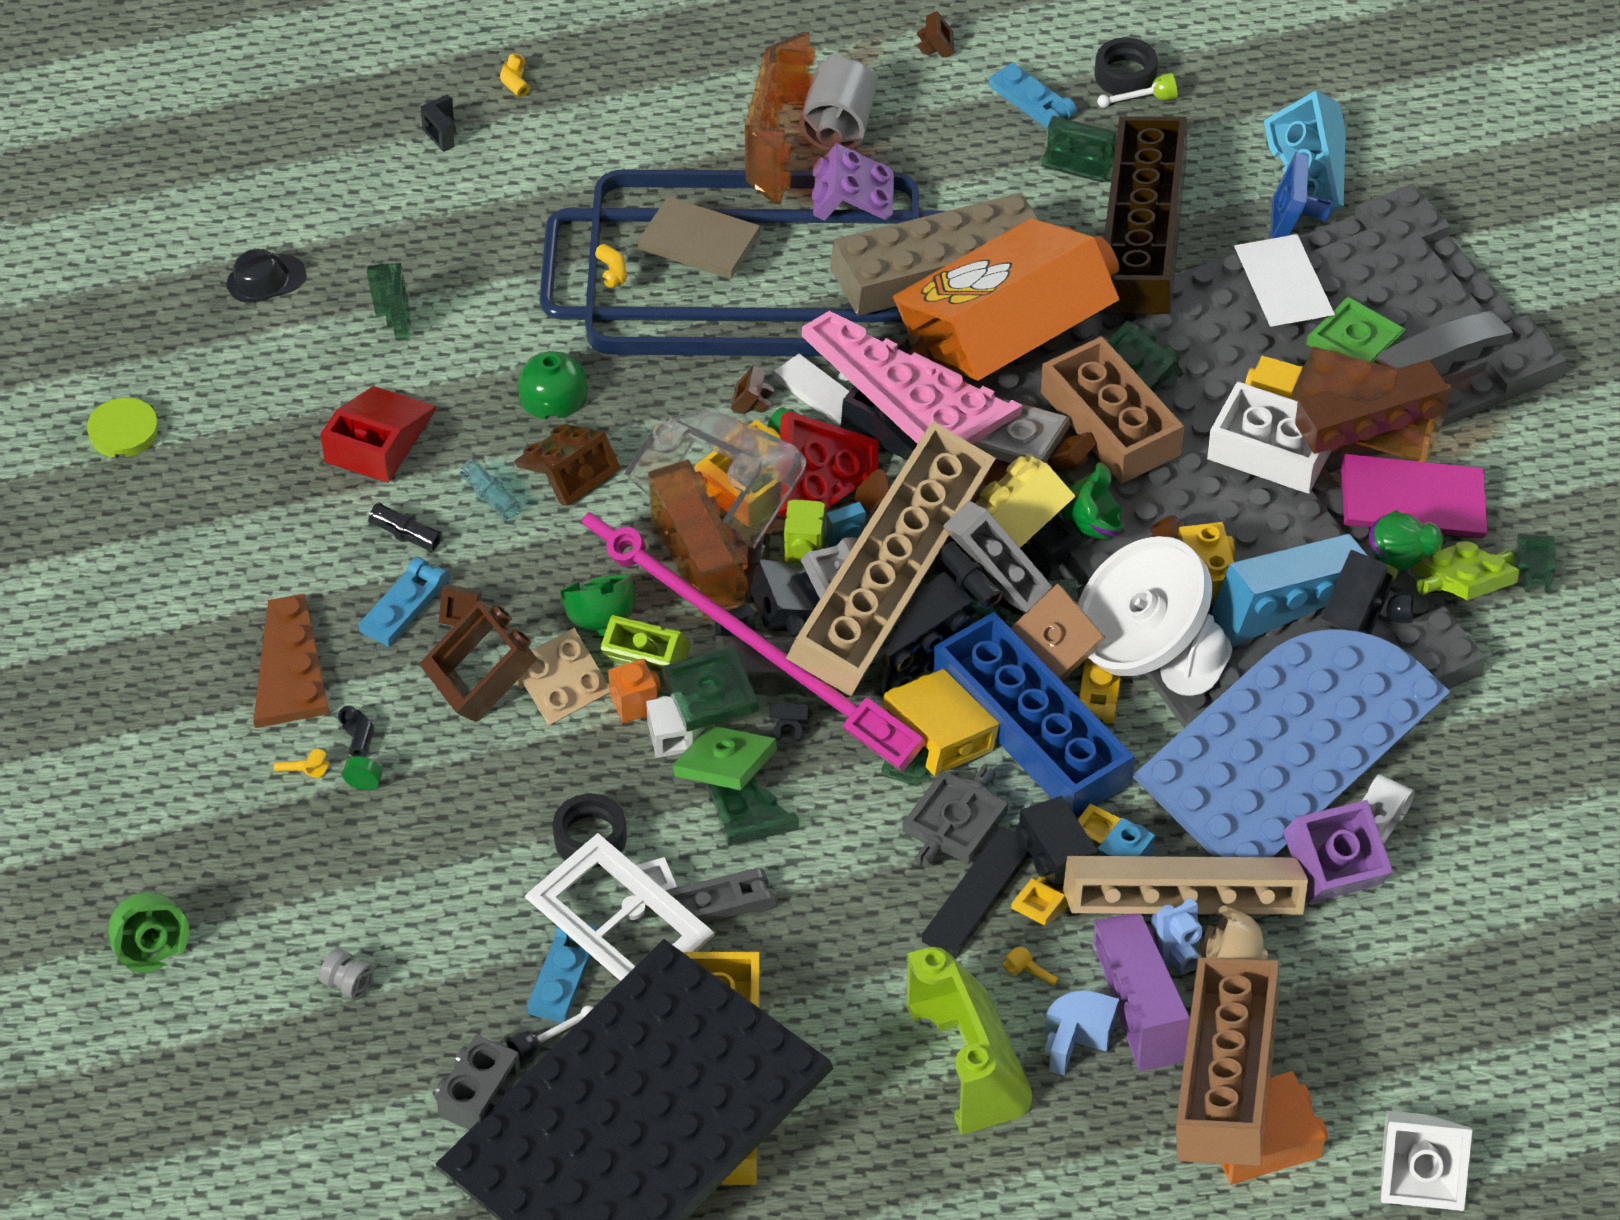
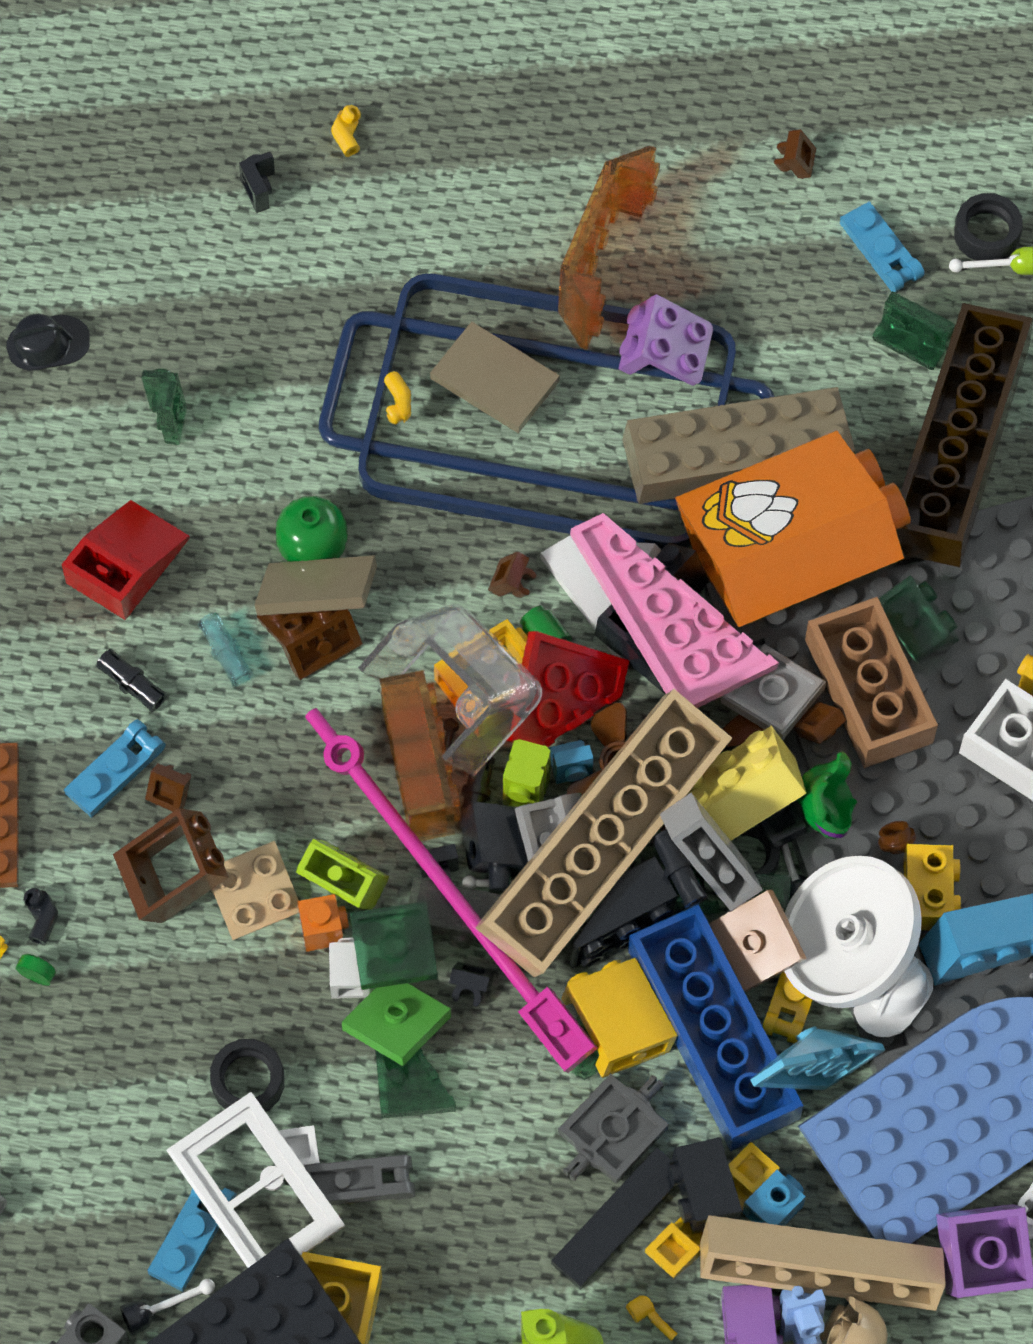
camera: 10 degrees right, 15 degrees up
(567, 420) = (316, 585): none -> dark tan tile
(598, 601) = (306, 810): green cylinder -> none
(838, 103) = (673, 232): light grey cylinder -> none
(1141, 717) = (817, 1060): none -> medium azure wedge

